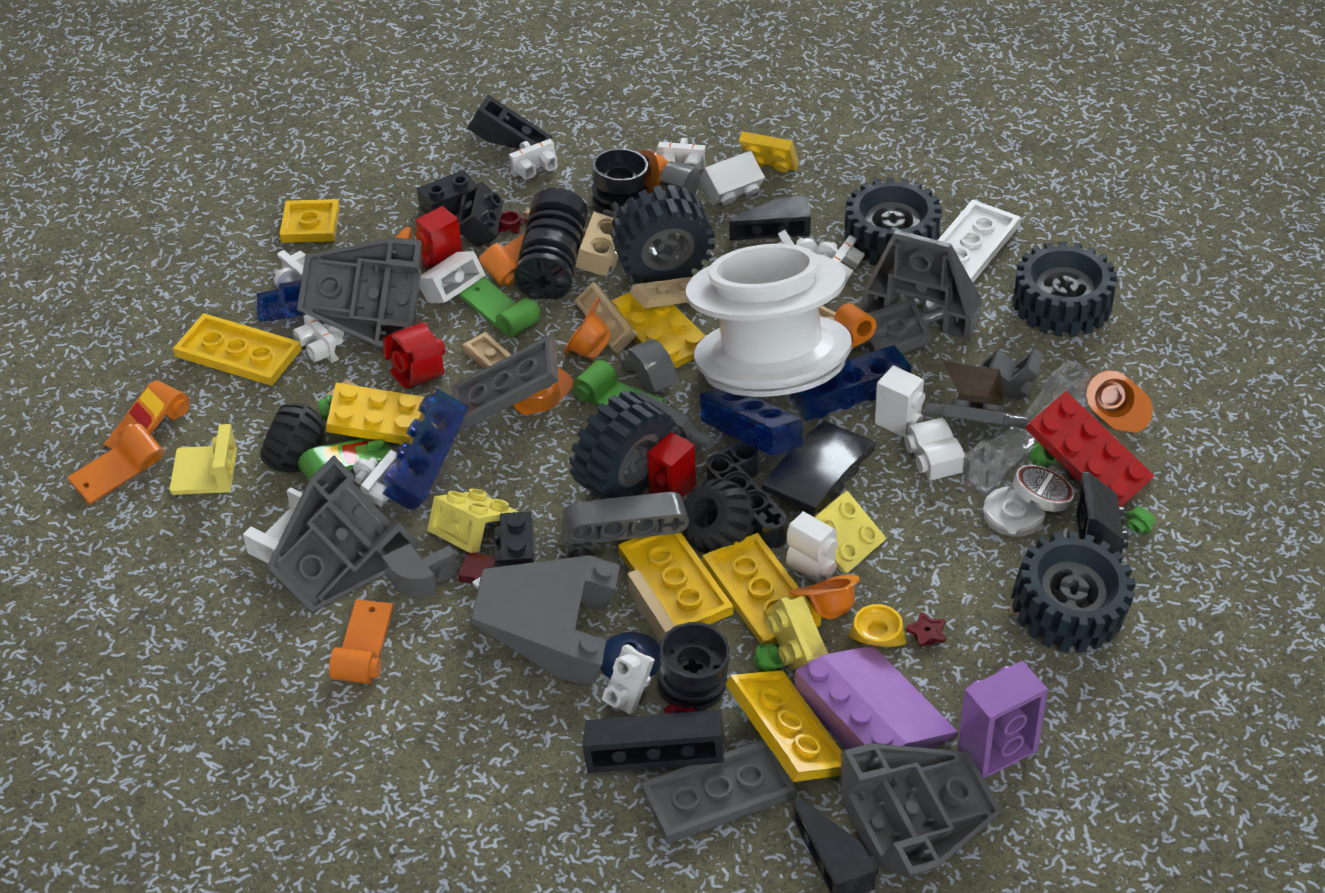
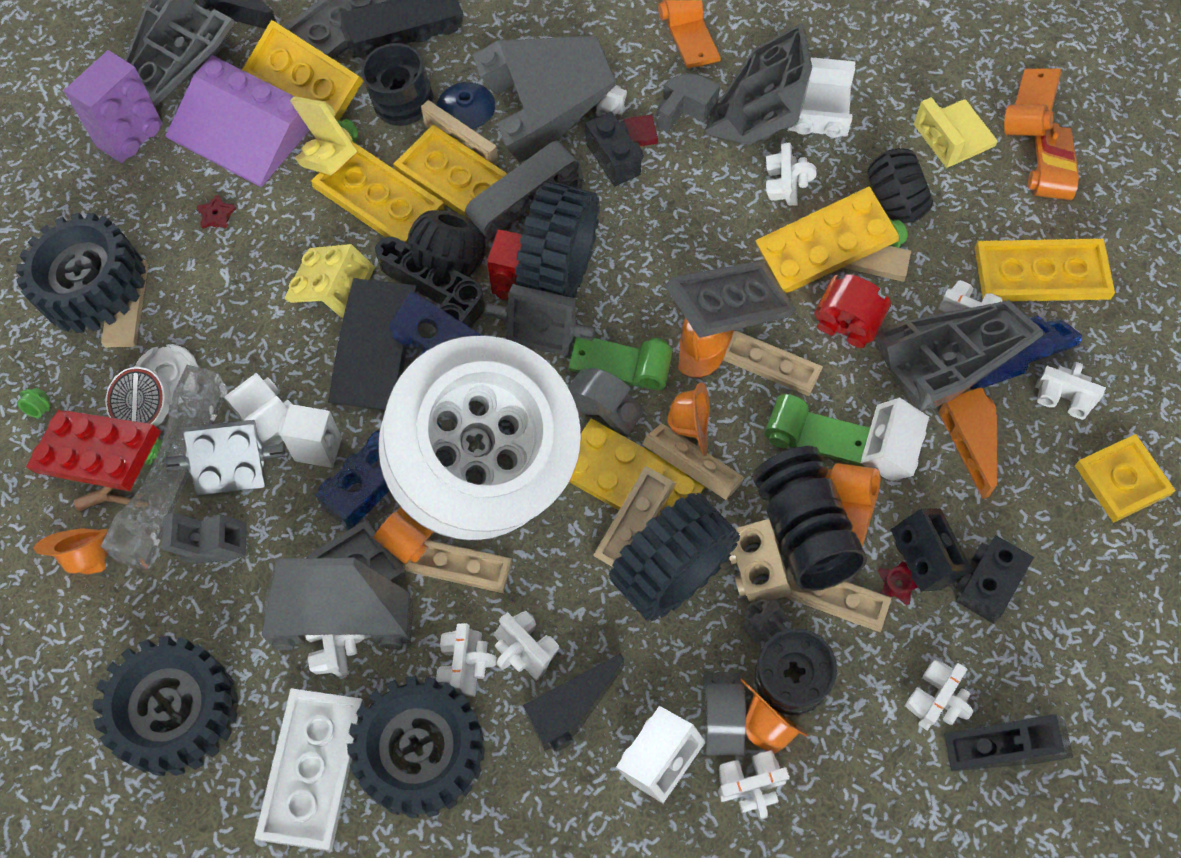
camera: 155 degrees right, 20 degrees up
(346, 452) = (836, 179): bright green door -> none
(439, 236) = (944, 477): red brick -> none
(447, 415) = (759, 202): clear blue brick -> none
(463, 516) = (674, 170): light yellow bracket -> none
(628, 679) = (448, 61): white hips -> none
(770, 151) = (632, 820): yellow plate -> none
(811, 547) = (338, 225): white brick -> none
(831, 596) = (313, 195): orange piece -> none
(878, 626) = (257, 187): yellow piece -> none
(976, 383) = (233, 484): dark brown slope -> none
(1100, 514) = (69, 369): black slope -> none

